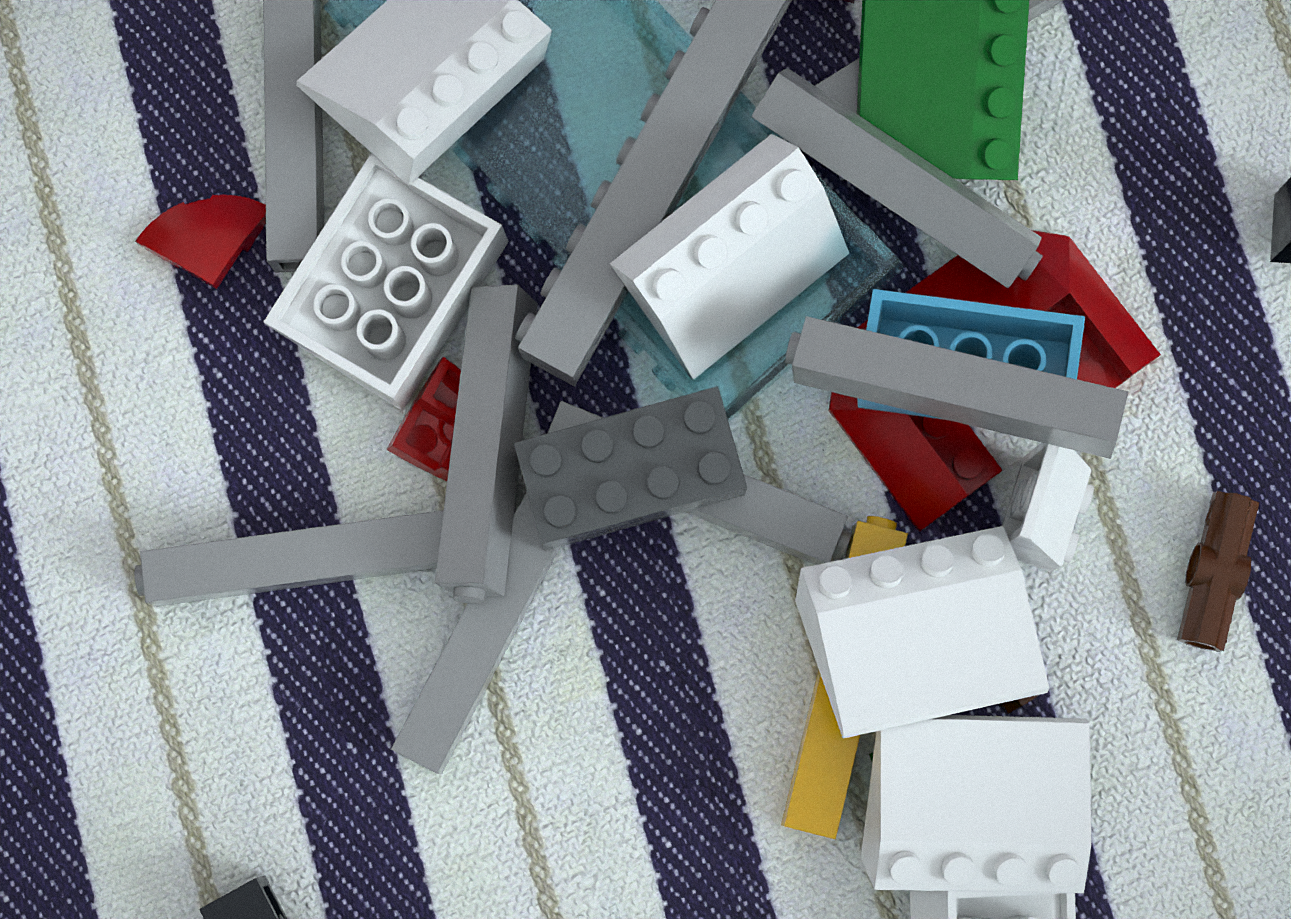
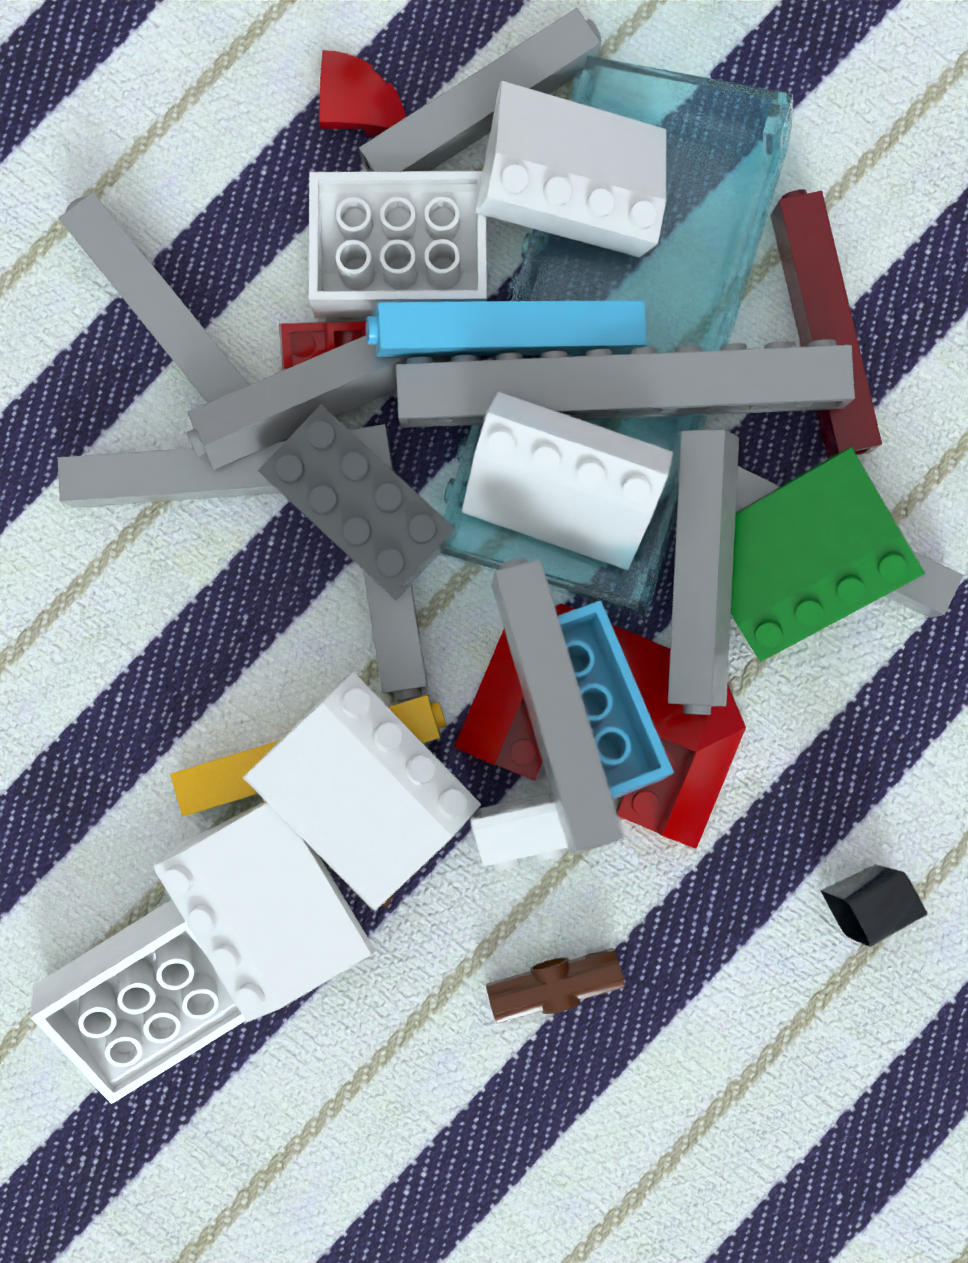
camera: 60 degrees right, 5 degrees up
(544, 223) = (505, 327): none -> medium azure brick

